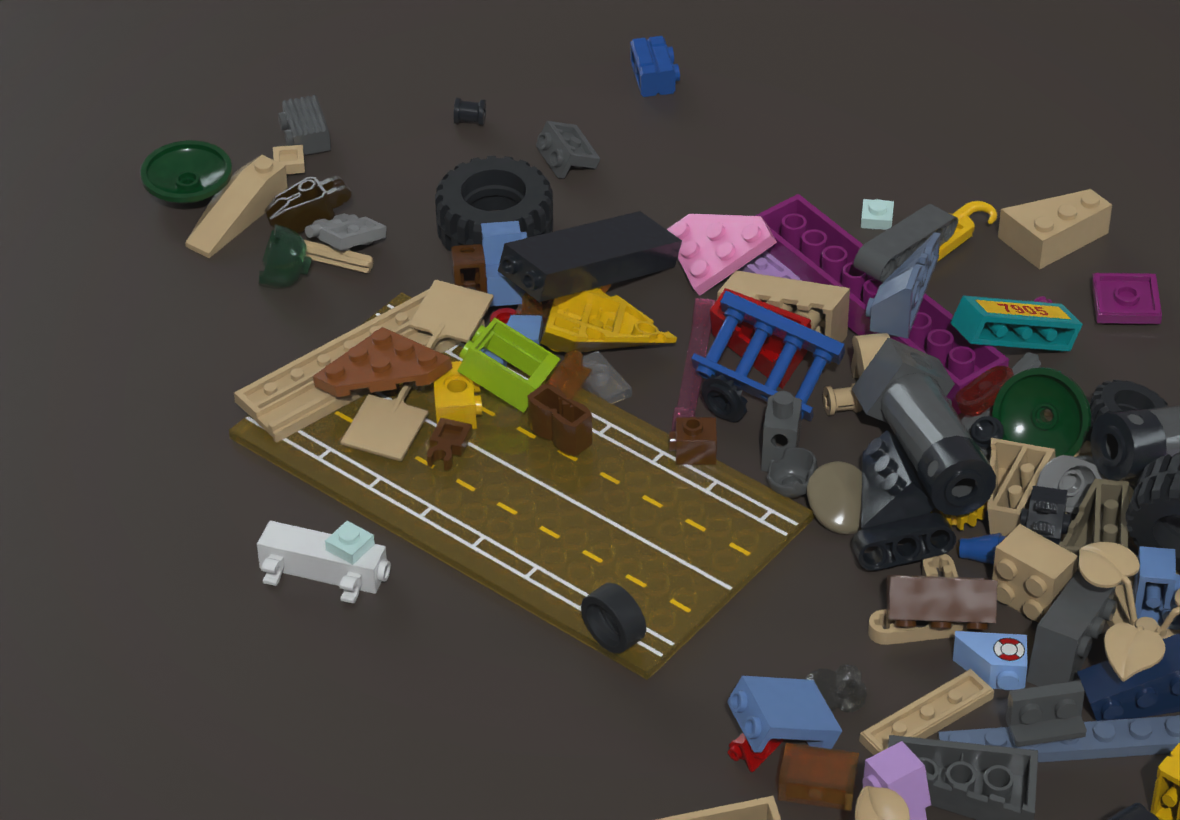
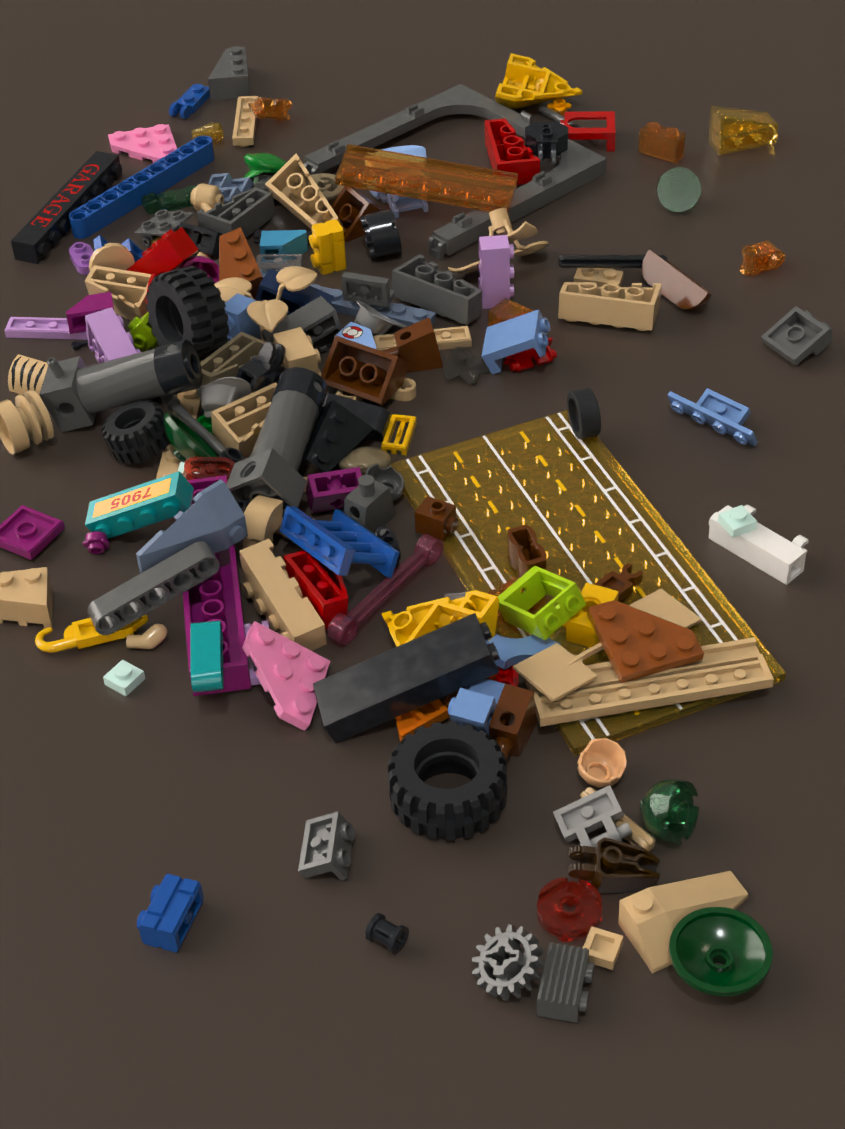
camera: 150 degrees left, 0 degrees up
(337, 164) = (569, 924): none -> clear red plate
(356, 117) = (508, 962): none -> dark grey gear
(366, 281) = (602, 762): none -> light nougat hair
(459, 719) = (719, 412): none -> medium blue bracket
(786, 193) = (206, 656): none -> teal beam
(839, 434) = (329, 489): none -> magenta brick
(846, 582) = (396, 446): none -> yellow tile
(907, 667) = (418, 346): none -> reddish brown torso
(985, 694) = (373, 319): none -> light grey piece

